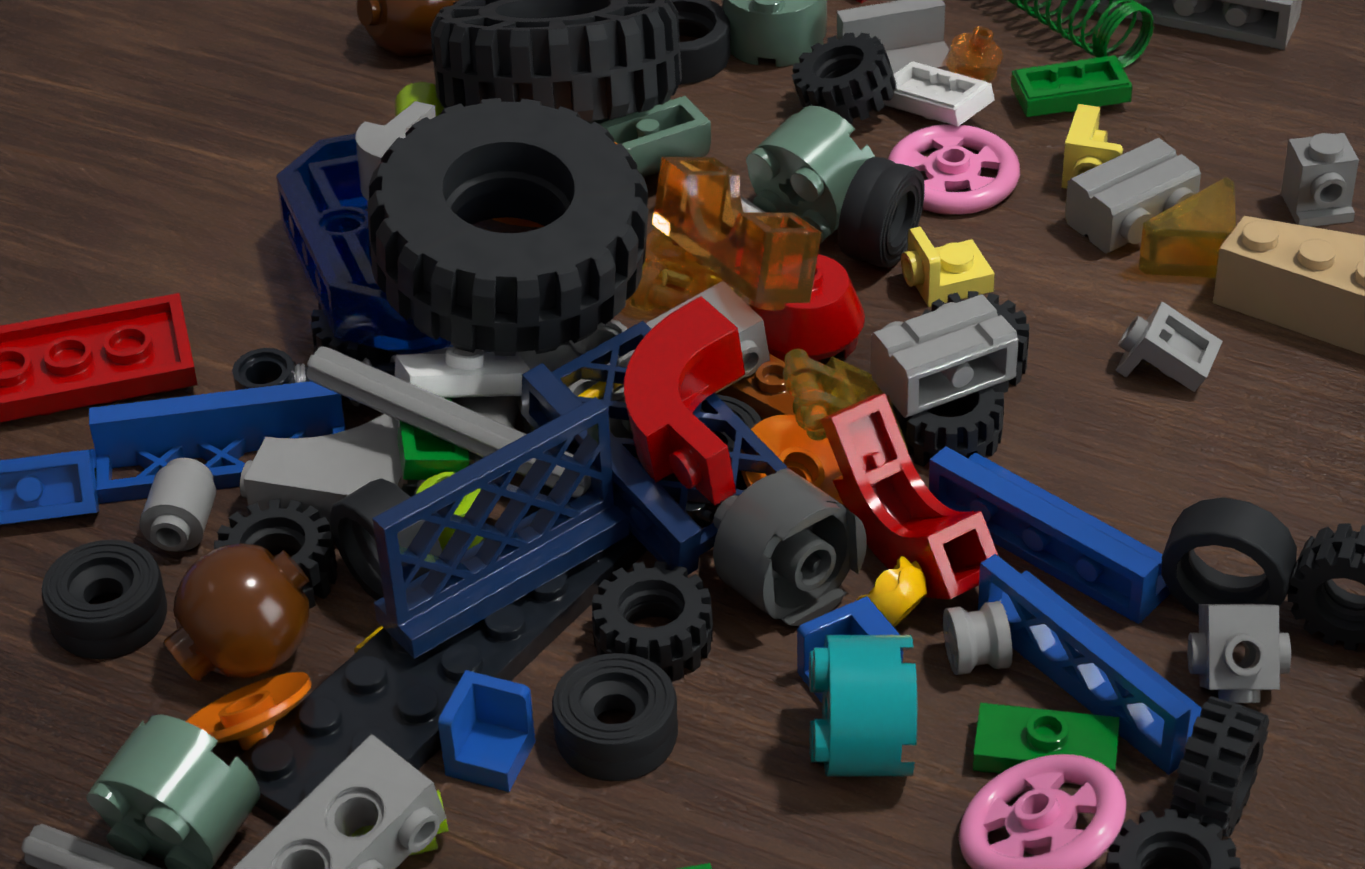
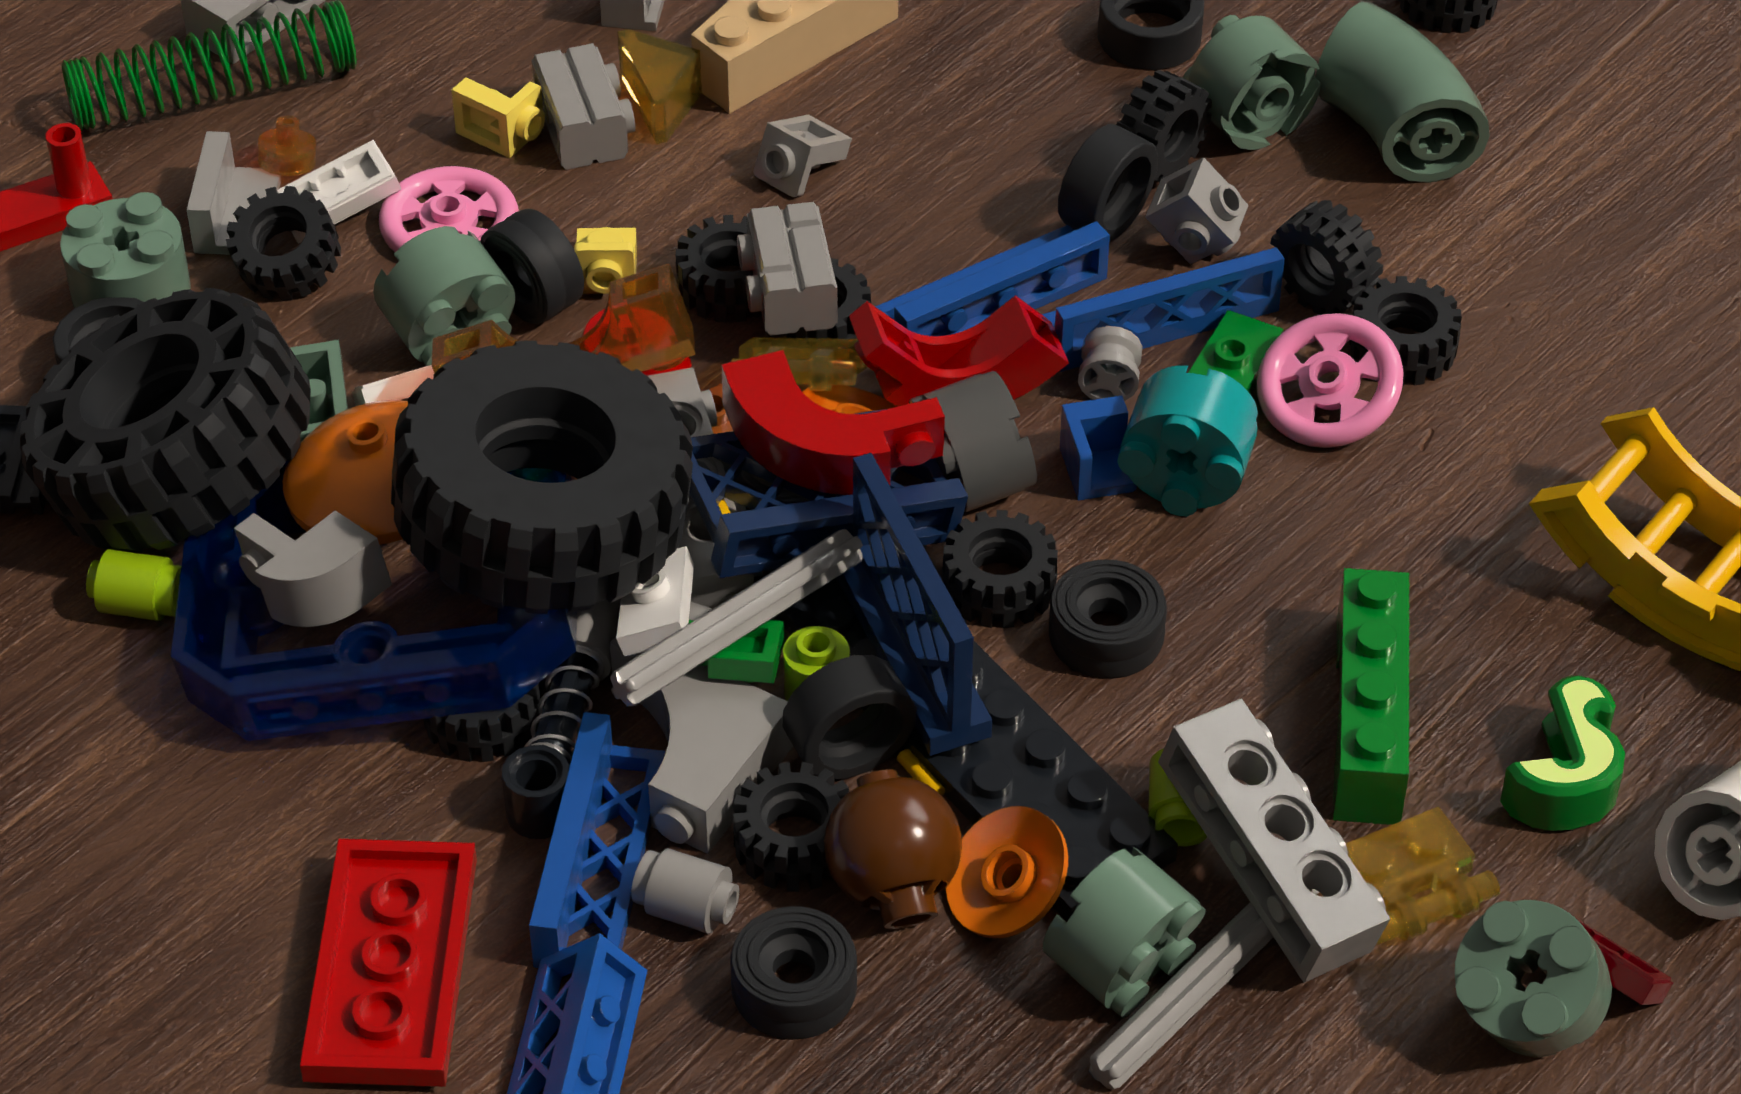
camera: 75 degrees left, 5 degrees up
(487, 730) = (1095, 711): blue panel -> none
(898, 590) = (1039, 400): yellow plate -> none
(1067, 84) = (379, 99): green plate -> none

